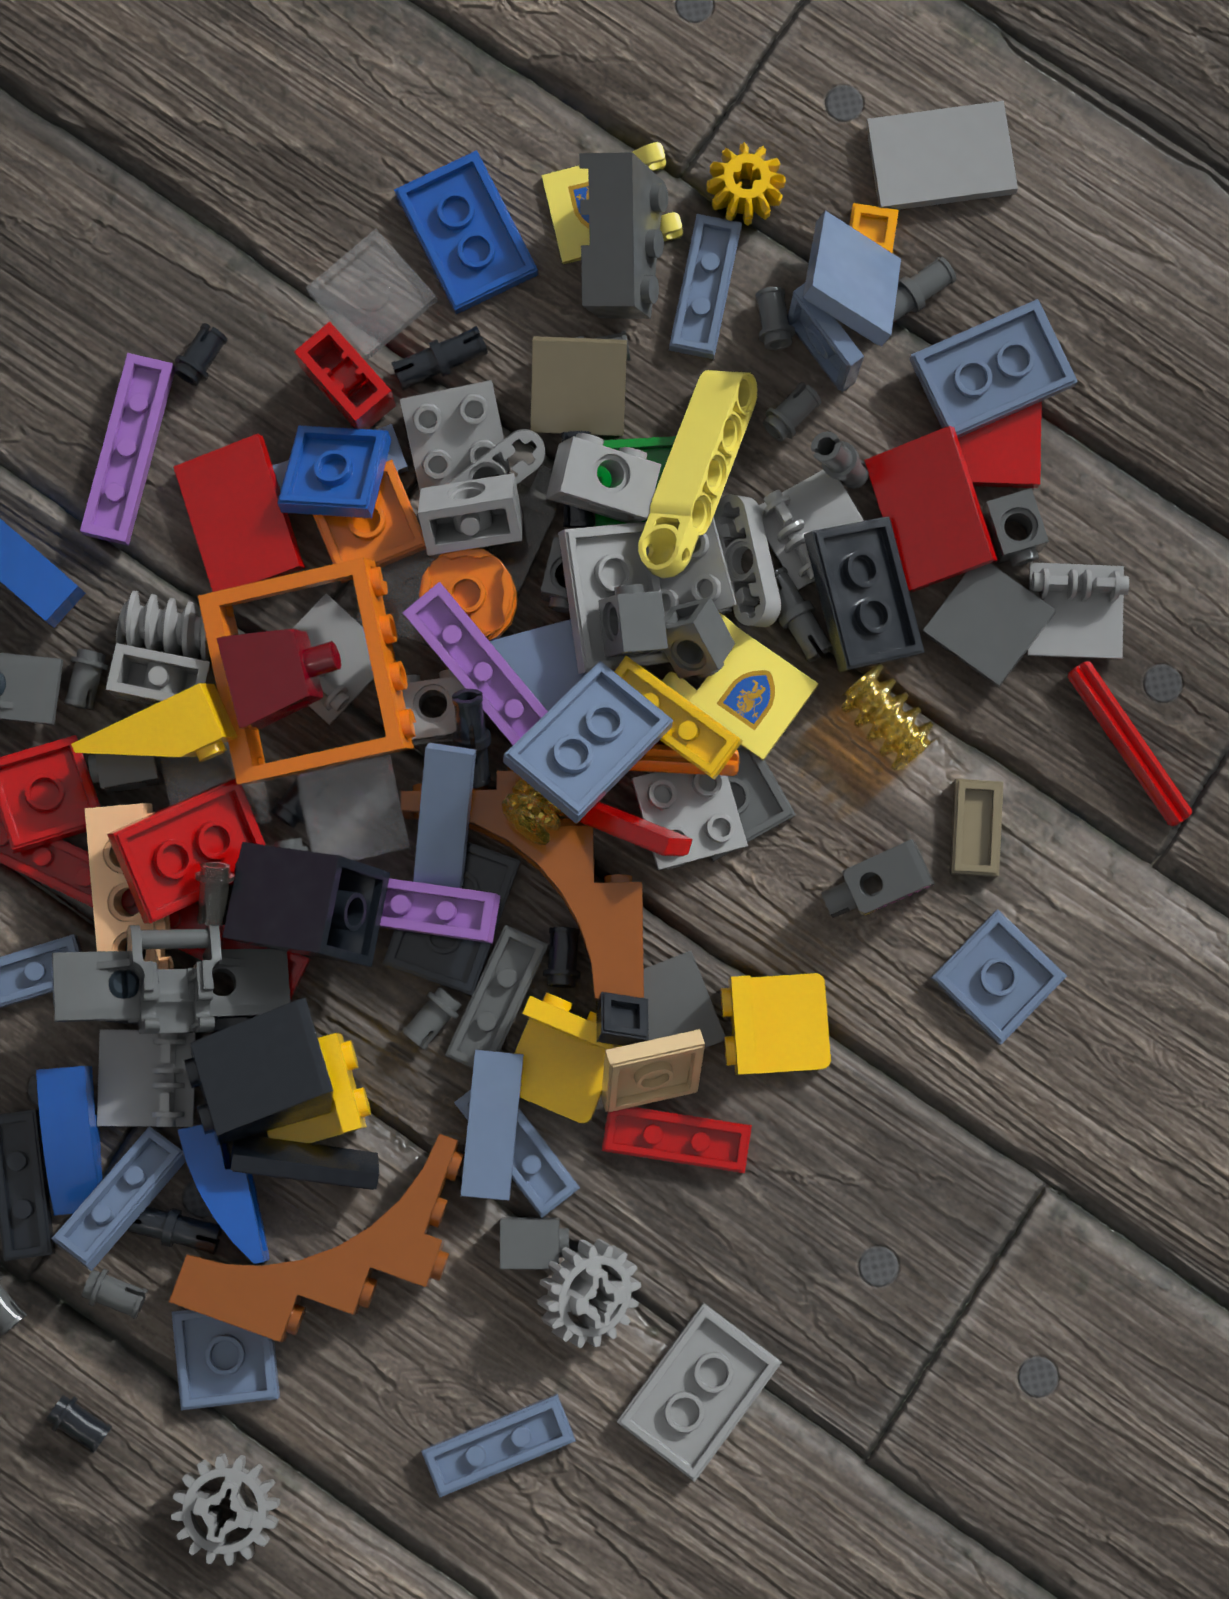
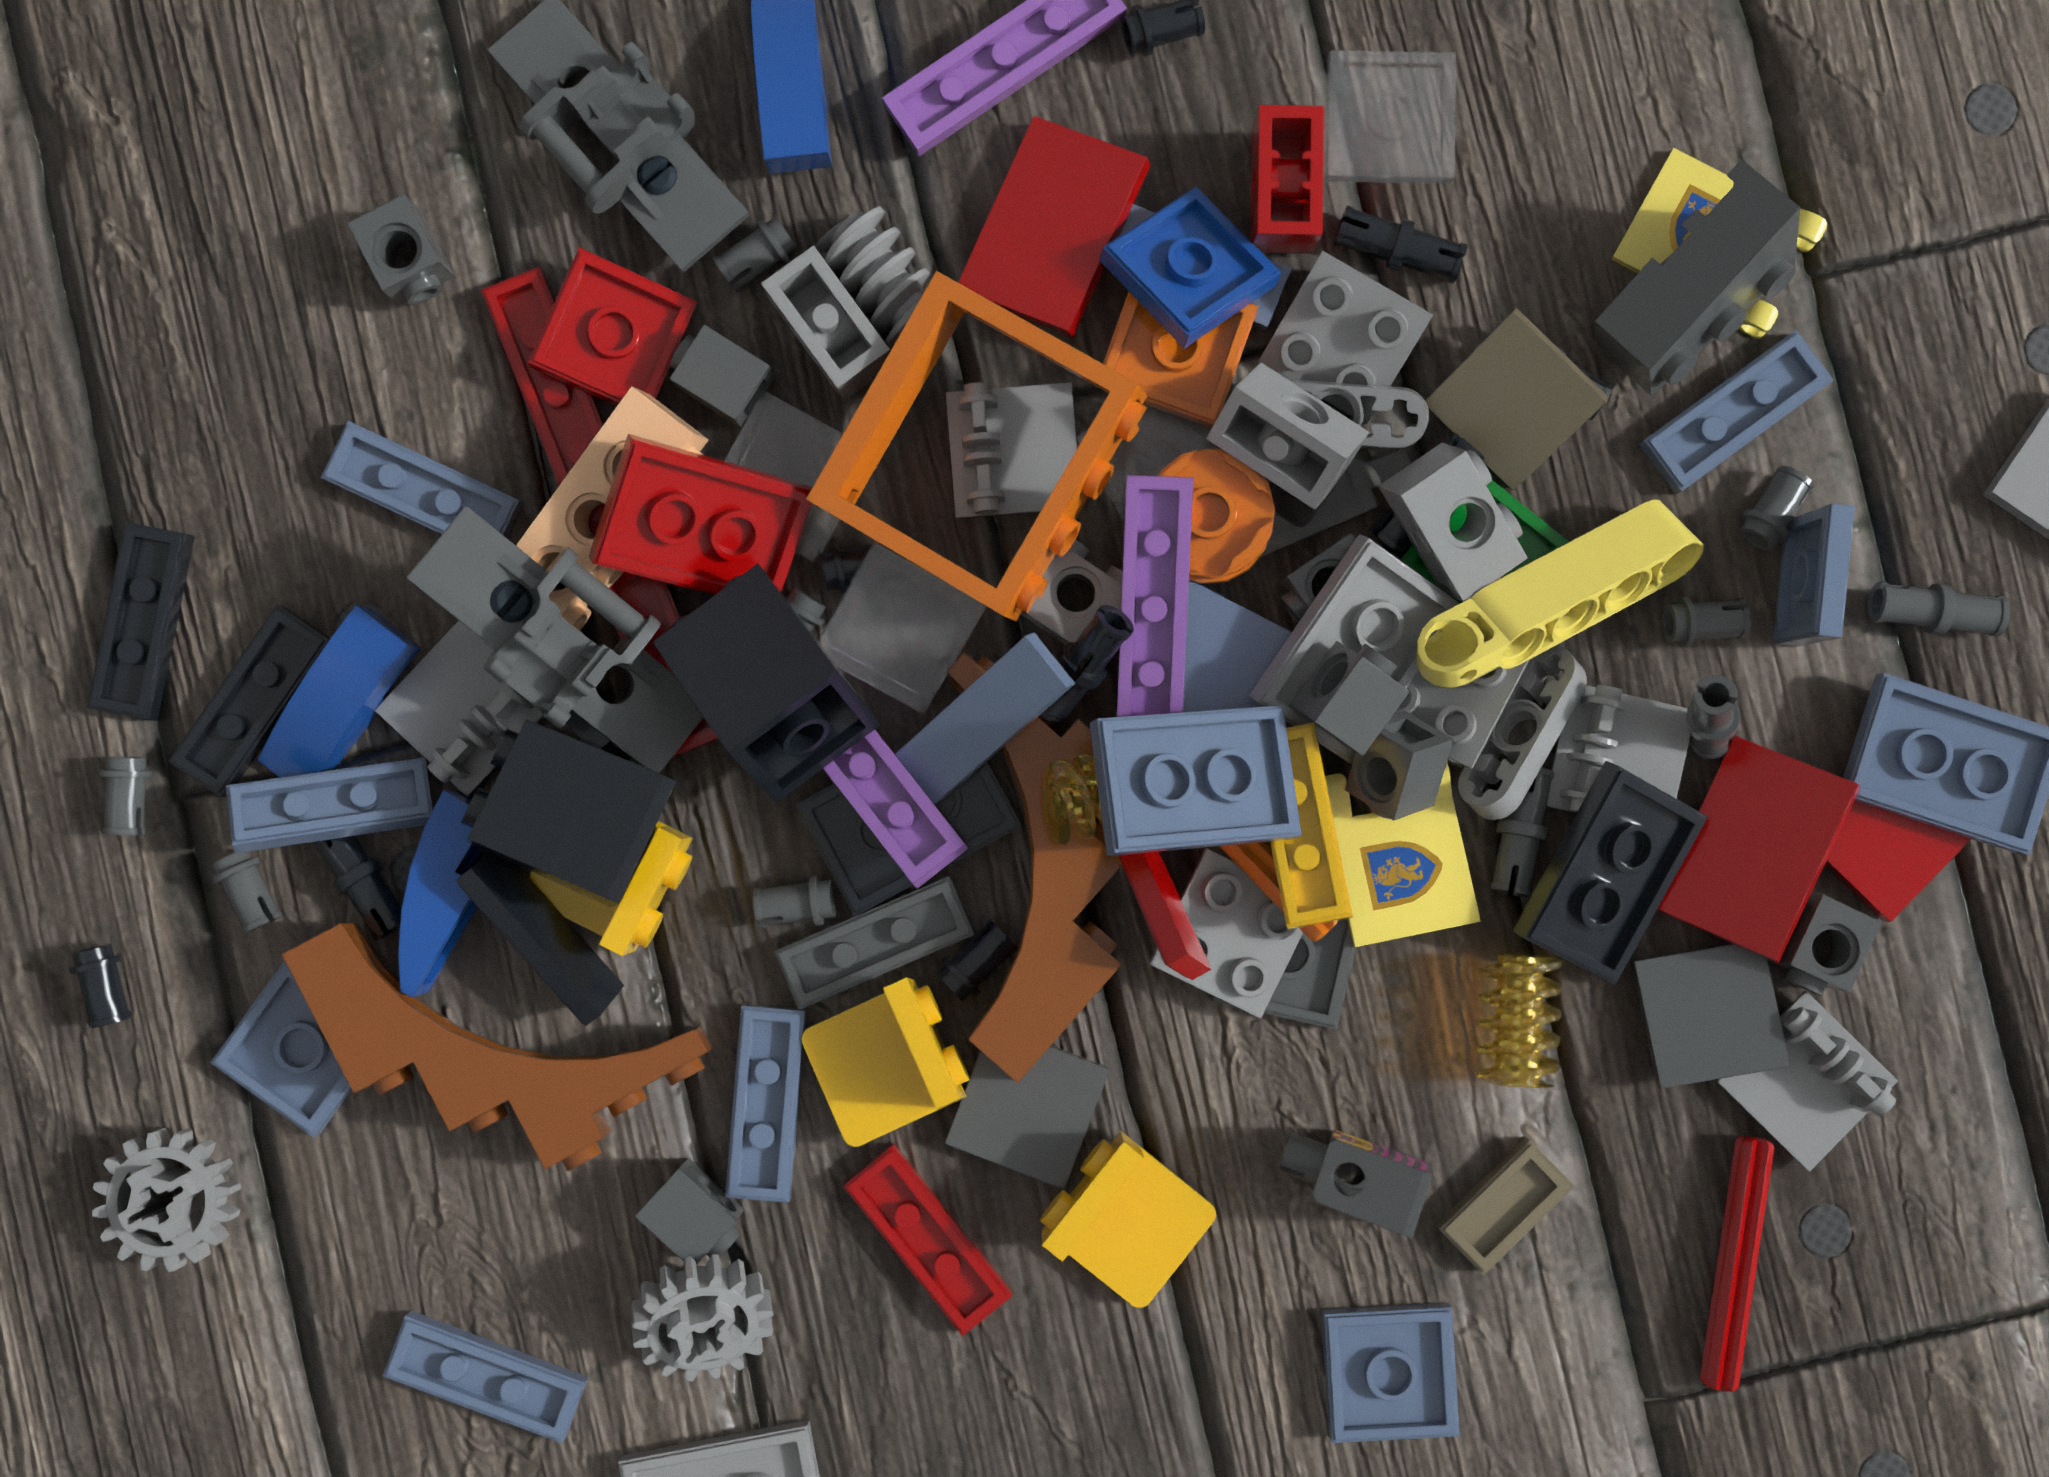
camera: 45 degrees right, 5 degrees up
(179, 726) = (789, 385): yellow slope -> none
(213, 893) = (693, 579): clear smoke pin -> none
(274, 673) = (940, 422): dark red torso -> none
(466, 232) = (1544, 138): blue tile -> none
(492, 1125) = (756, 1065): sand blue tile -> none
(621, 1019) = (975, 1088): black tile -> none
(652, 1070) = (961, 1161): tan tile -> none
(762, 177) = (1898, 339): yellow gear -> none
(852, 279) = (1900, 544): sand blue tile -> none
(875, 223) = (1958, 507): light orange tile -> none

